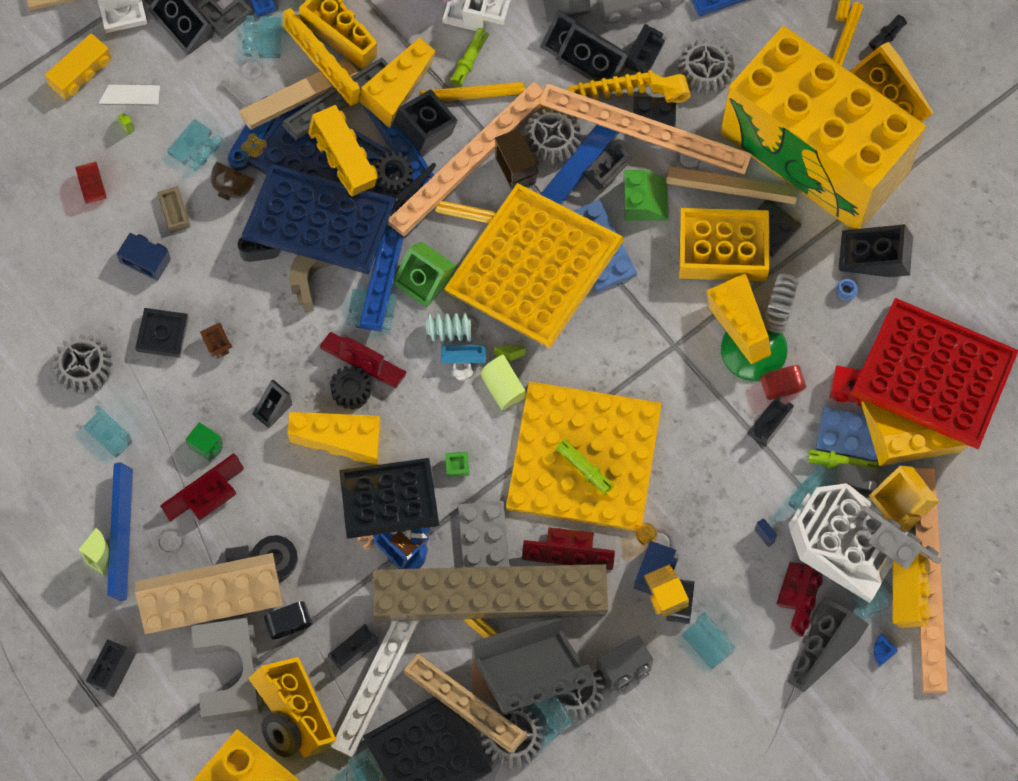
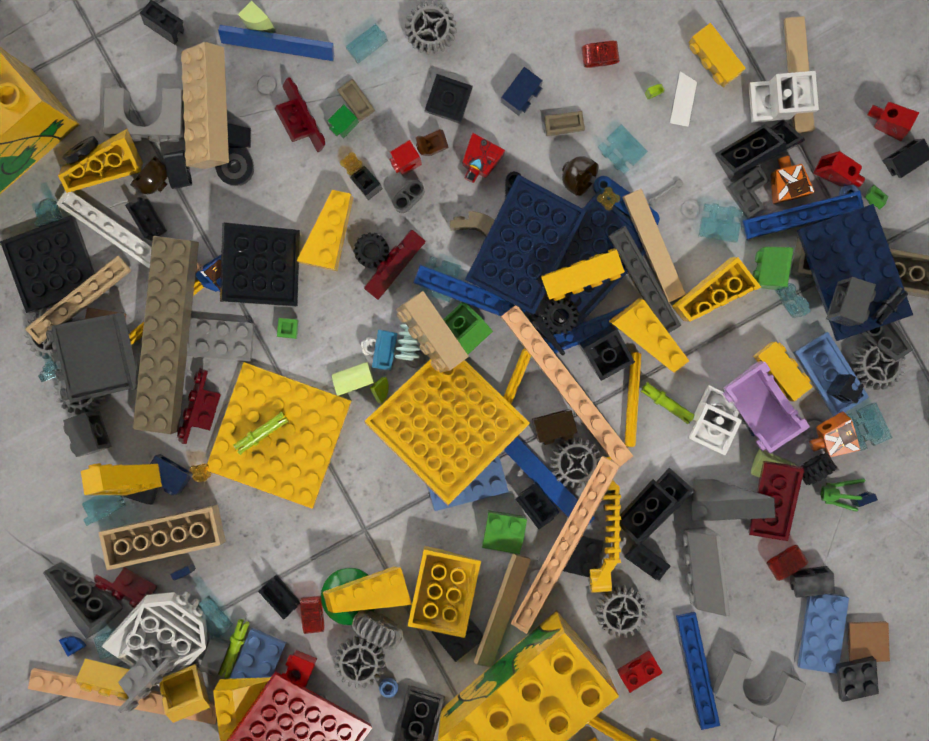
camera: 100 degrees right, 20 degrees up
(174, 435) = (356, 100): none -> dark tan tile
(225, 287) = (481, 157): none -> red torso
(239, 361) = (405, 158): none -> red brick
(250, 421) = (346, 163): none -> clear yellow plate
(280, 357) = (411, 198): none -> dark grey beam
(301, 643) = (151, 177): none -> dark brown cylinder
(321, 57) = (680, 273): yellow plate -> none
(434, 291) = (431, 332): none -> tan brick
(729, 559) = (162, 537): none -> tan brick
(759, 32) = (639, 671): none -> red brick
(840, 318) = (351, 661): none -> light grey gear

